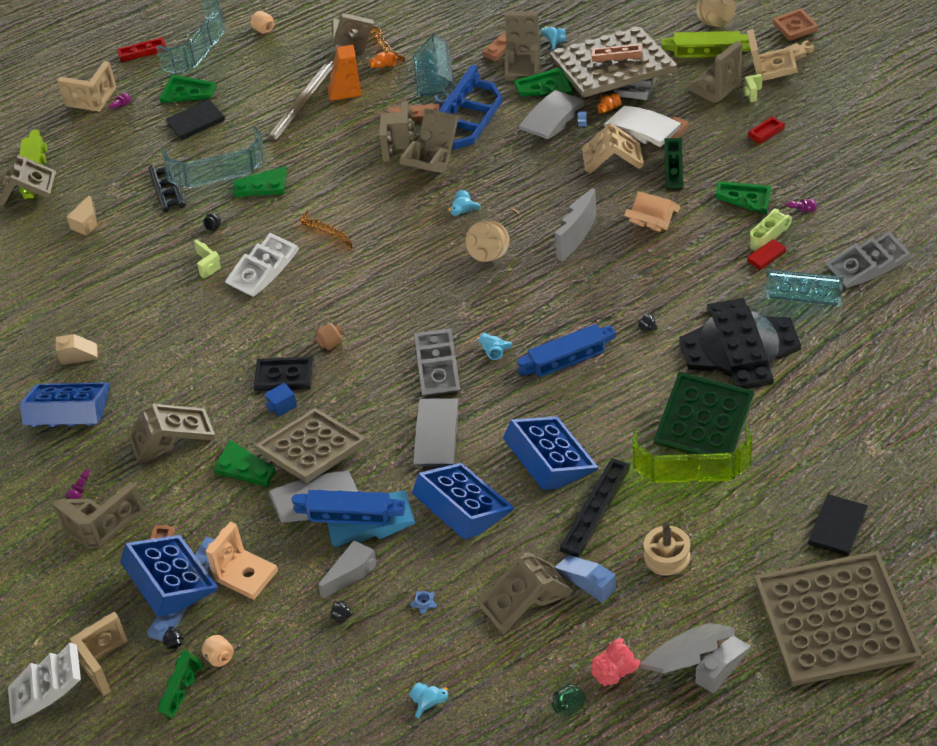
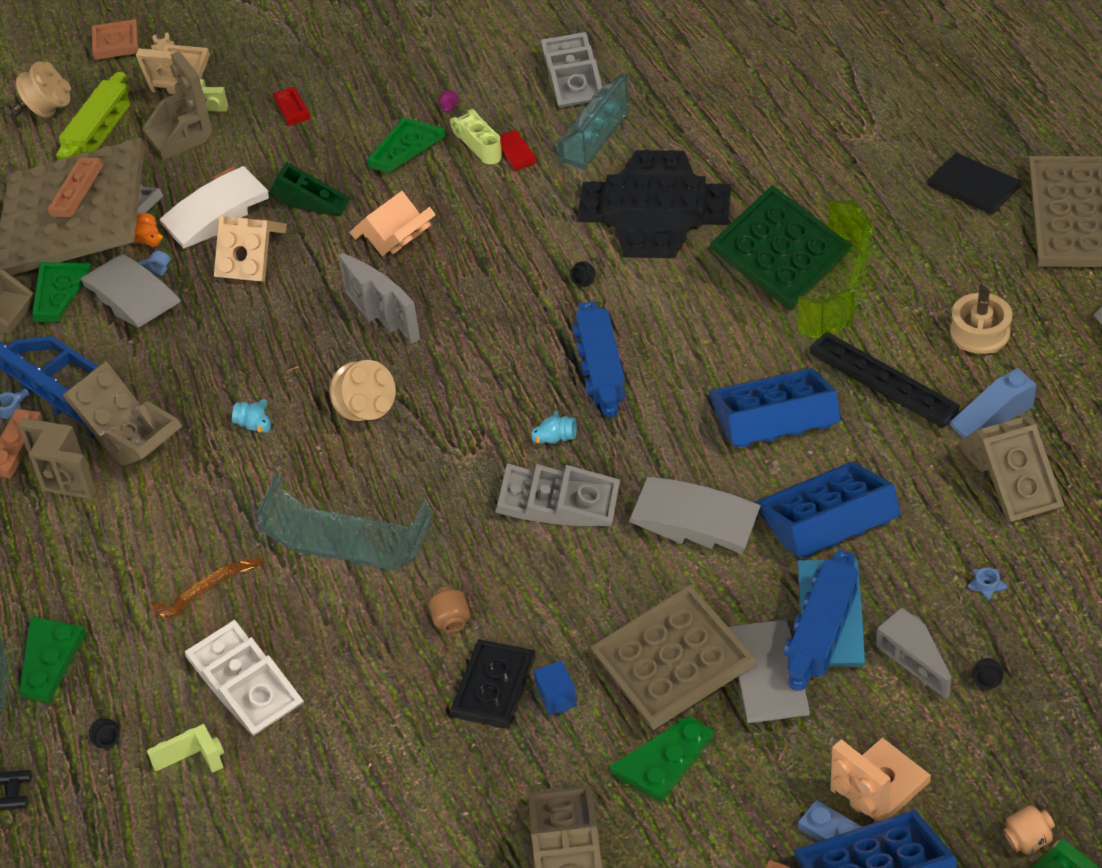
camera: 75 degrees left, 0 degrees up
(380, 264) = (340, 535): none -> clear light blue windscreen

